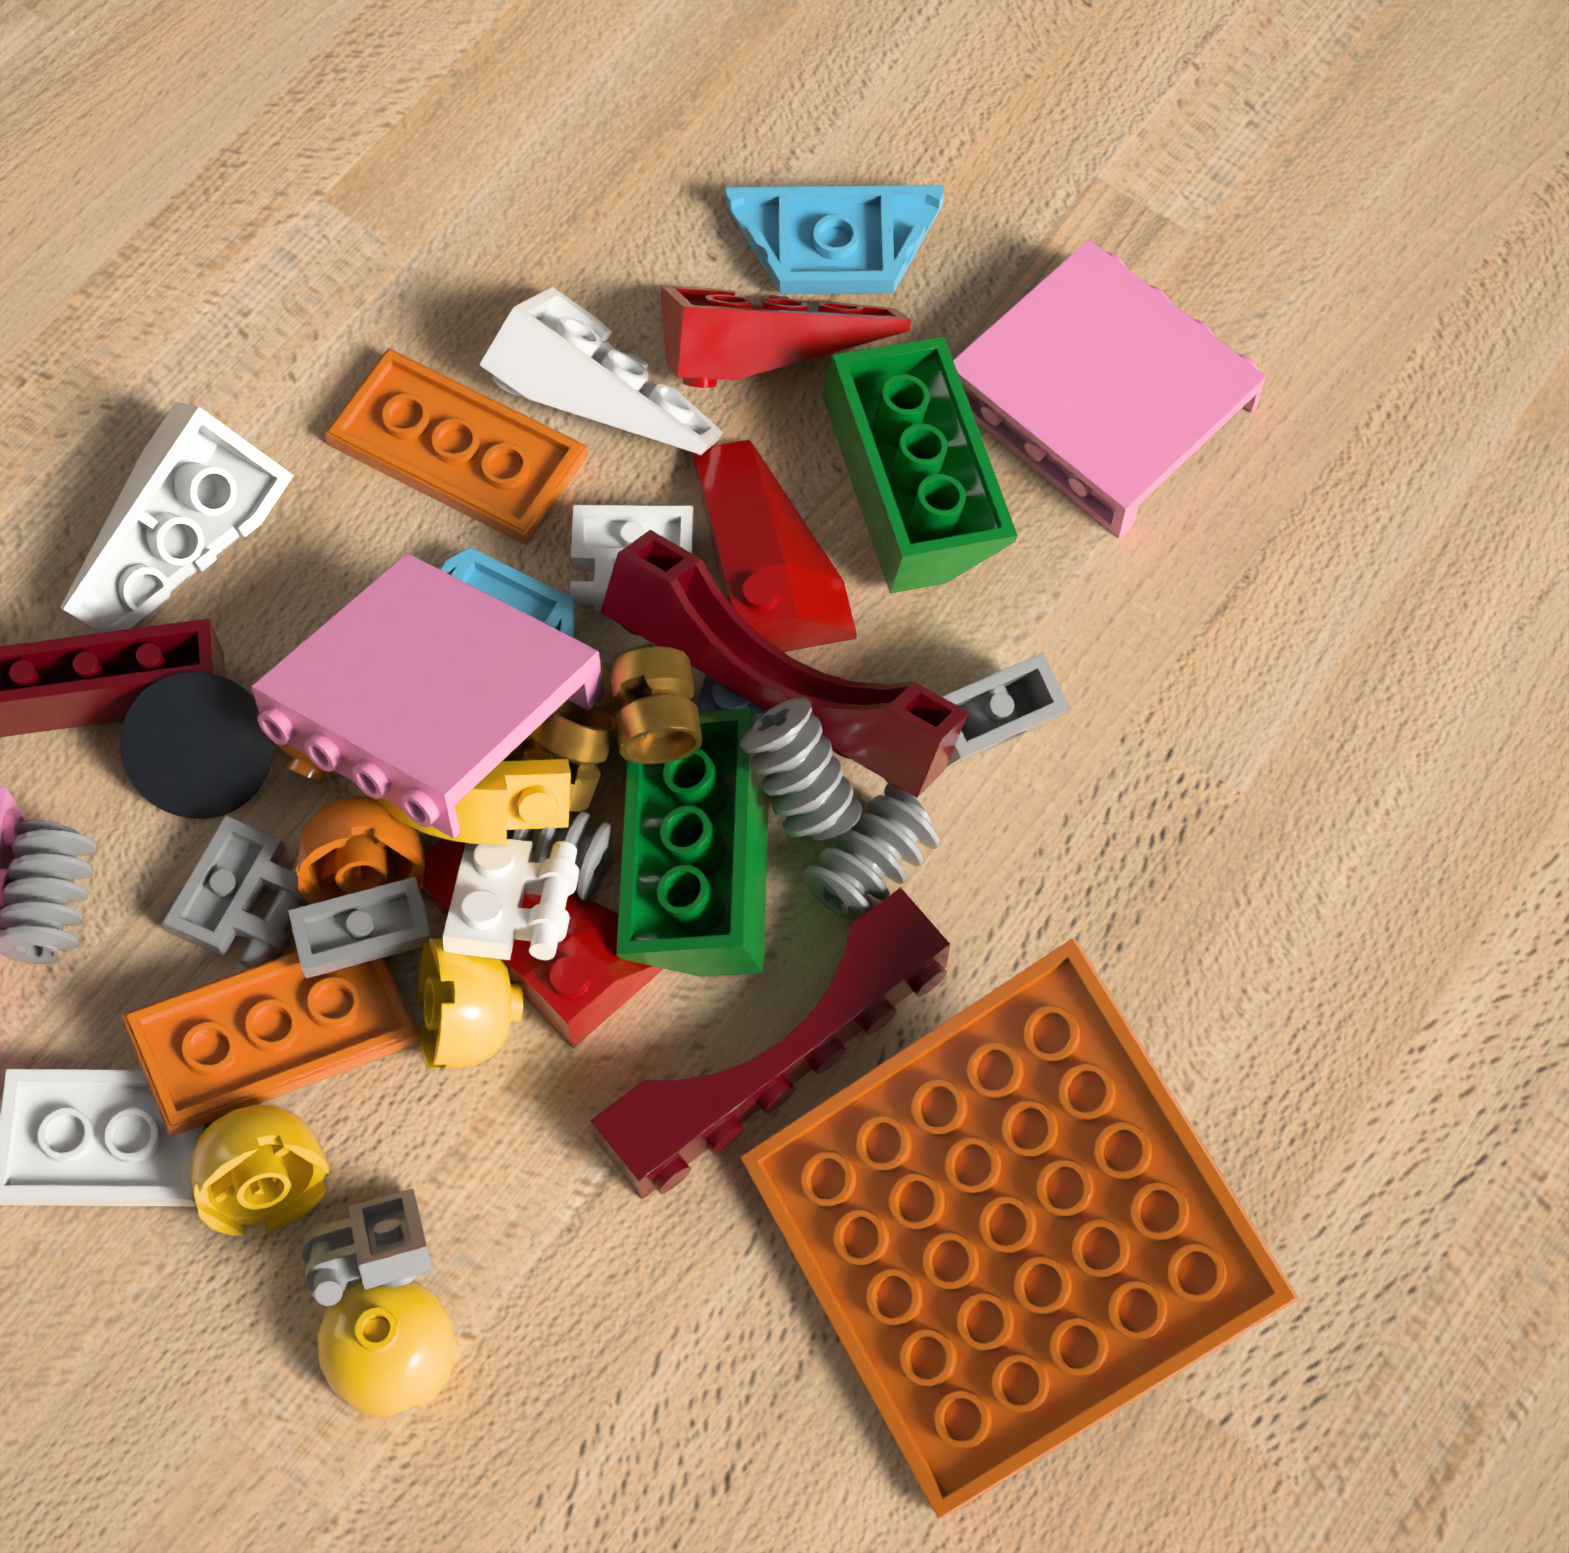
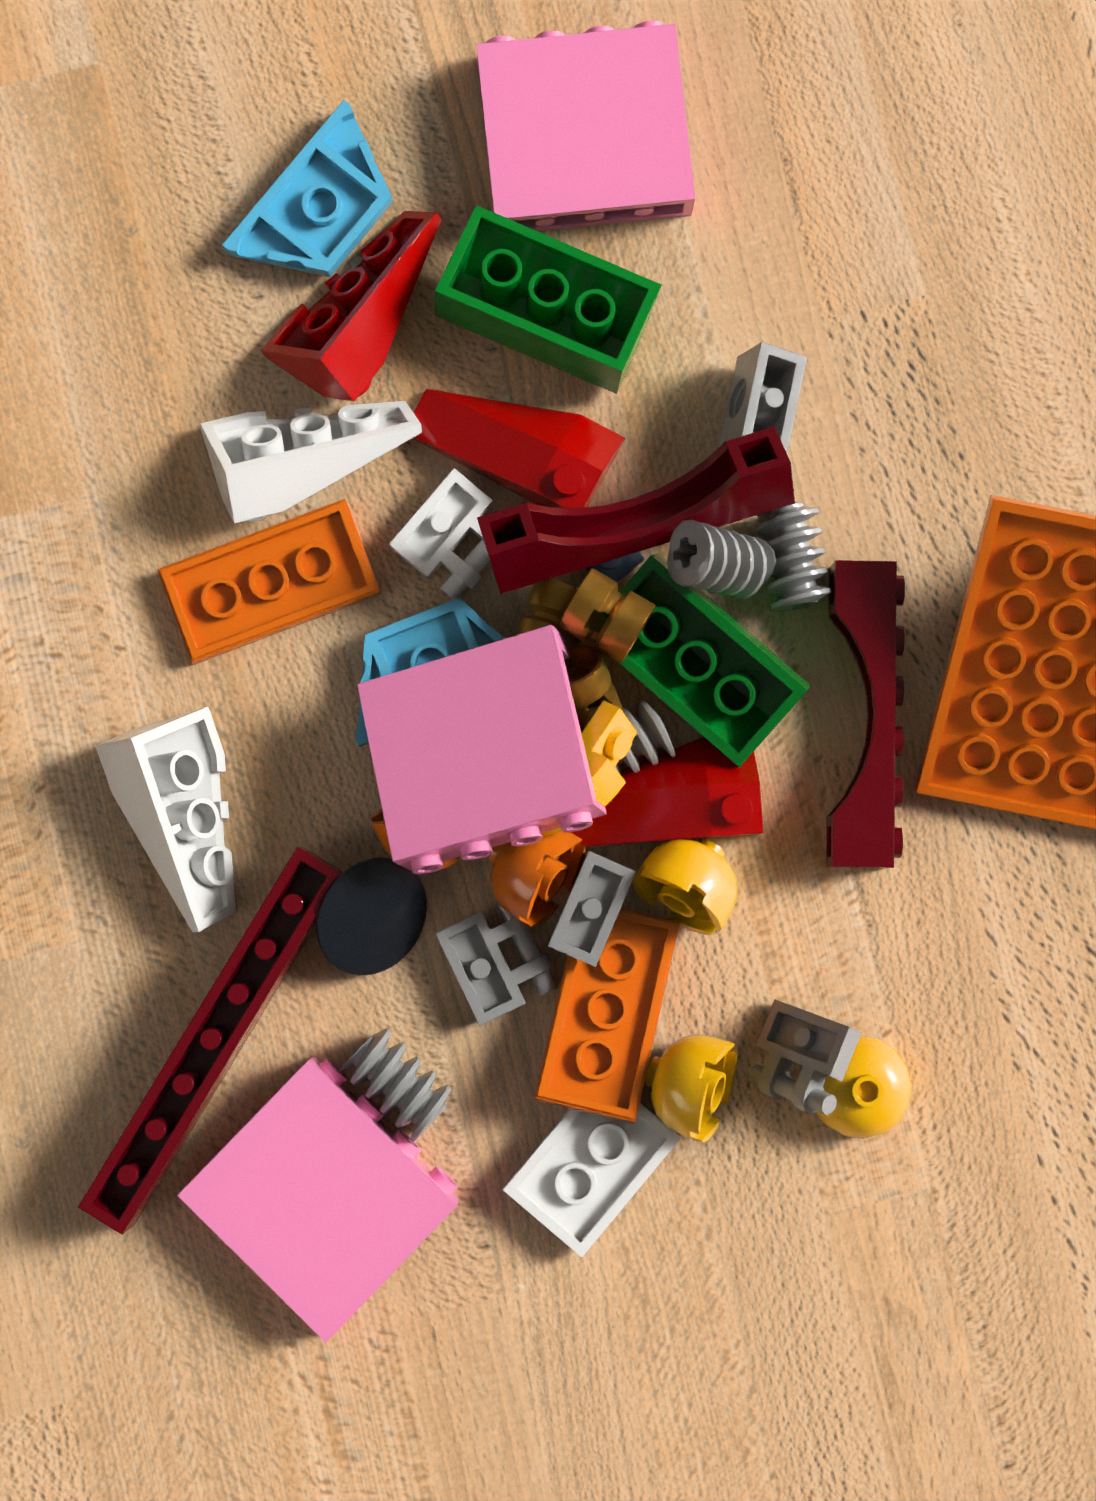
camera: 50 degrees left, 20 degrees up
(490, 895) = (651, 819): white plate -> none

